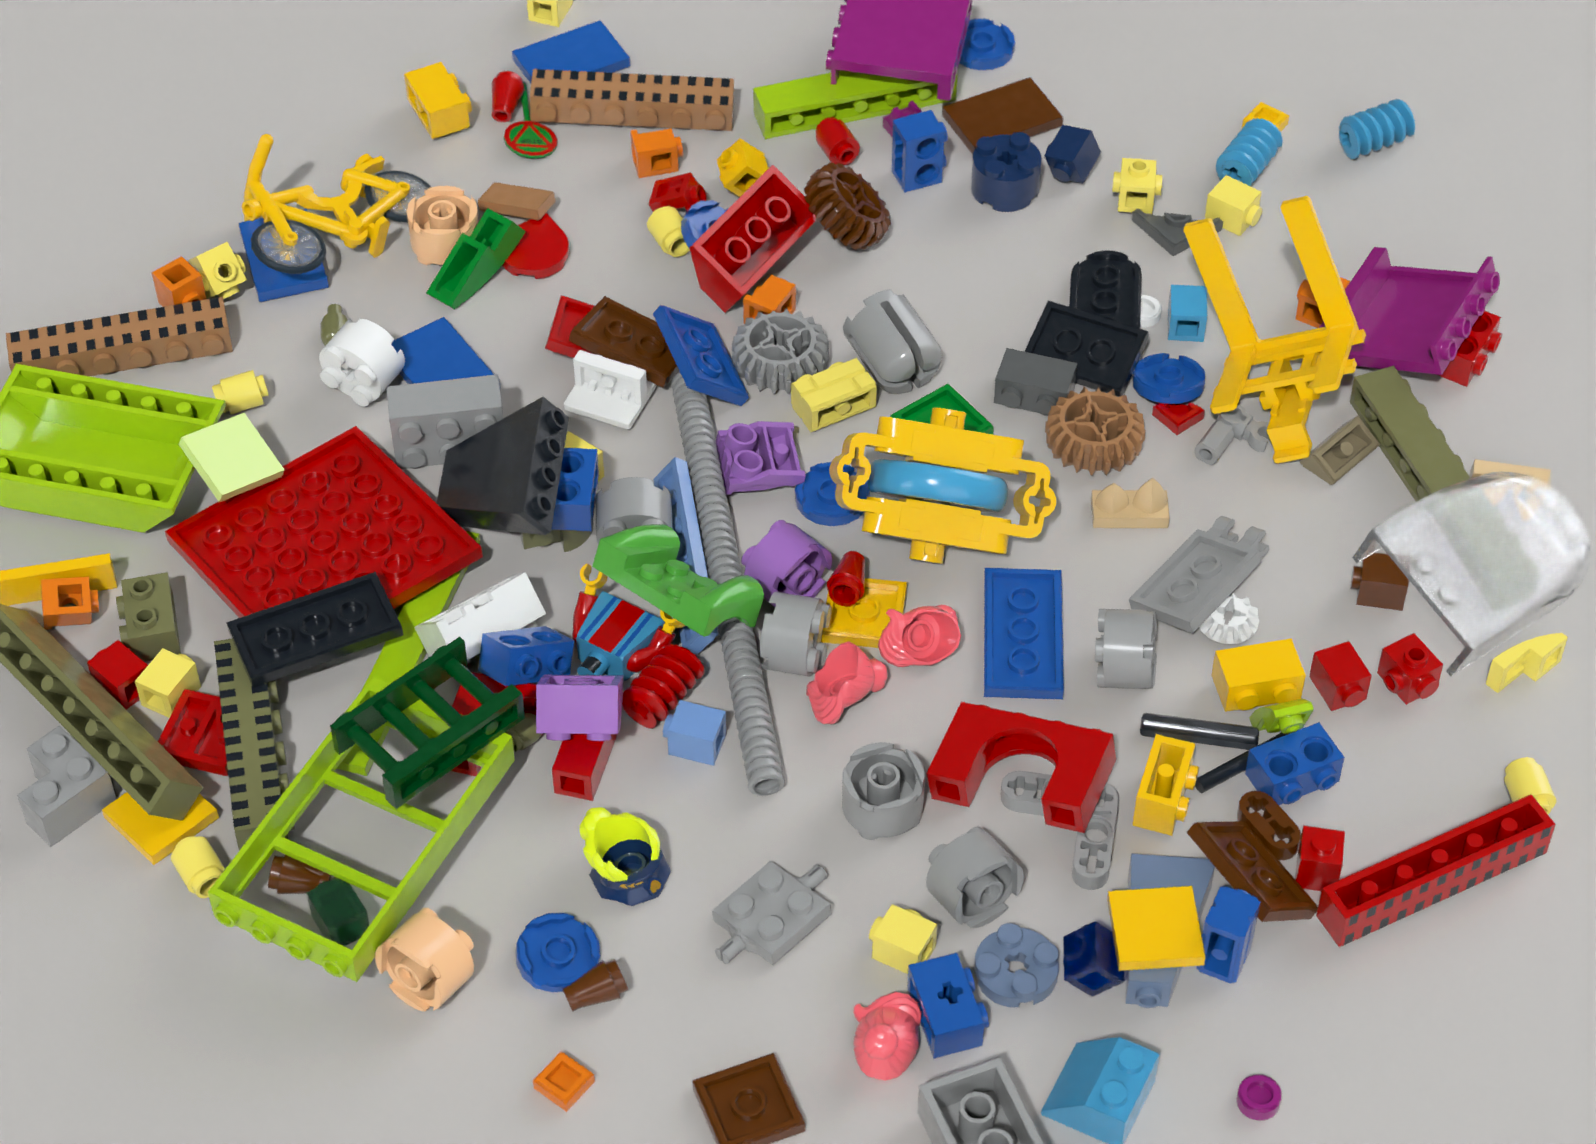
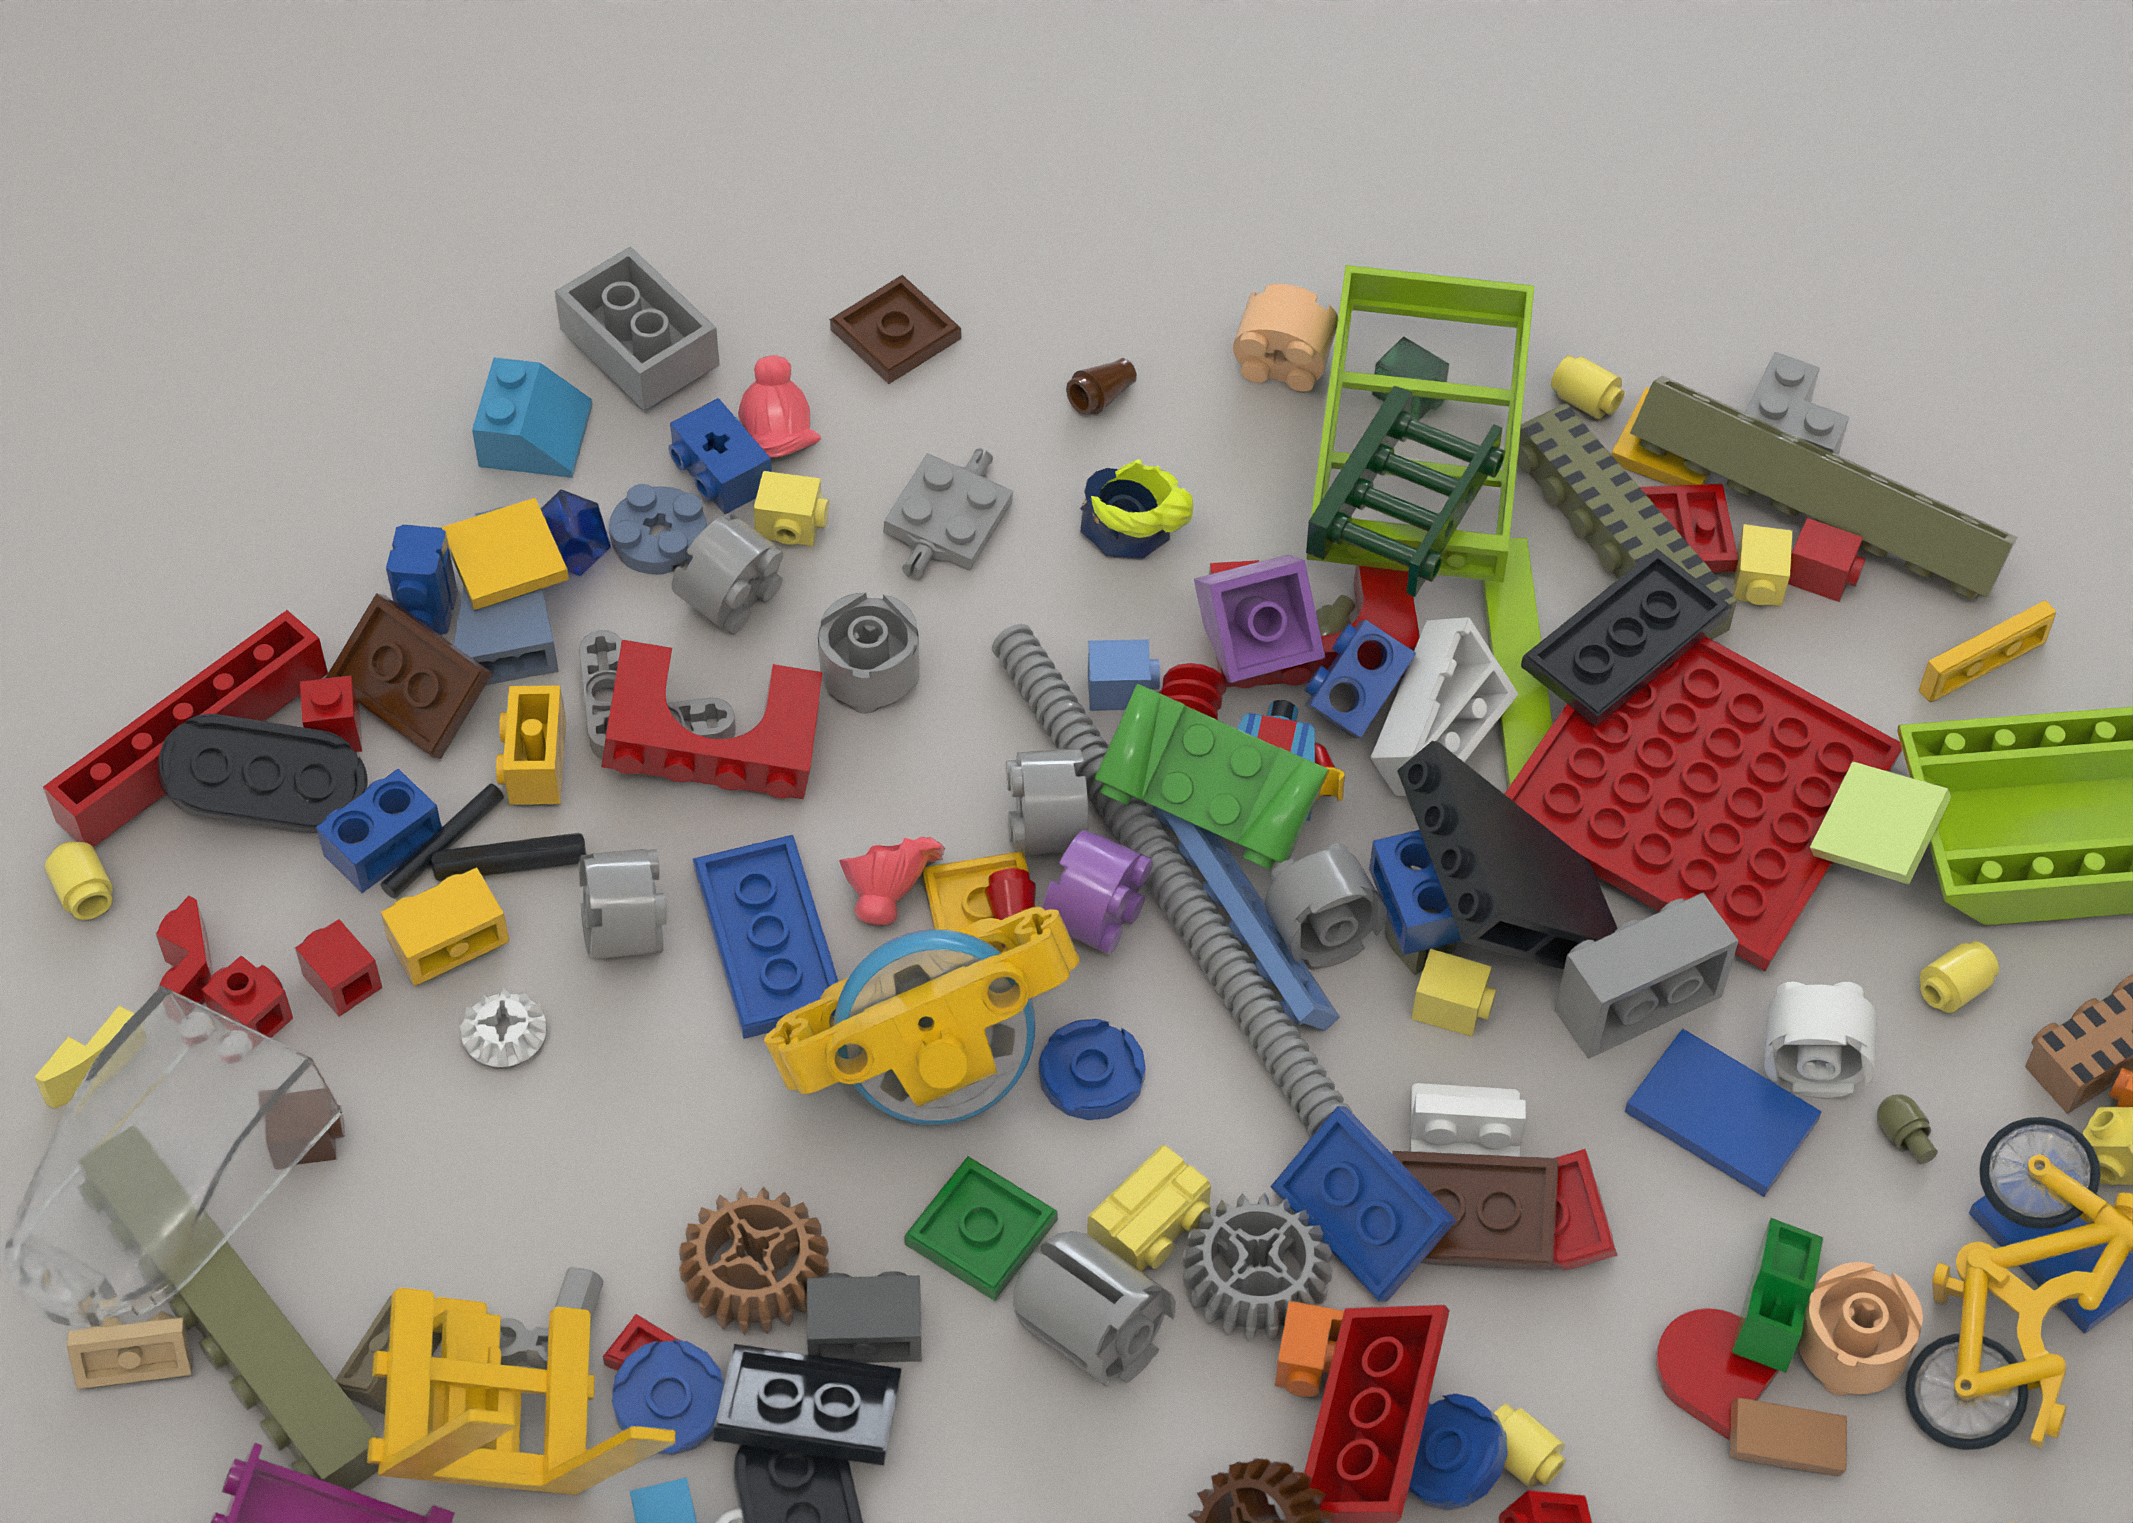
camera: 160 degrees right, 5 degrees up
(61, 591) = (1948, 619): orange brick -> none
(149, 616) = (1841, 636): olive brick -> none
(294, 876) = (1473, 414): reddish brown cone -> none
(545, 954) = (1162, 418): blue tile -> none
(563, 1081) = (1093, 303): orange tile -> none
(758, 456) = (1194, 1070): medium lavender slope -> none
(844, 681) = (961, 781): coral hair -> none
(1130, 508) = (674, 1162): tan tile -> none
(1200, 575) = (550, 1059): light grey tile -> none
(1259, 1097) = (362, 470): magenta tile -> none
(1273, 823) = (407, 754): reddish brown beam -> none
(1283, 716) = (400, 854): lime slope -> none
(1384, 812) = (259, 772): none -> black tile
(1449, 709) = (185, 947): none -> red slope

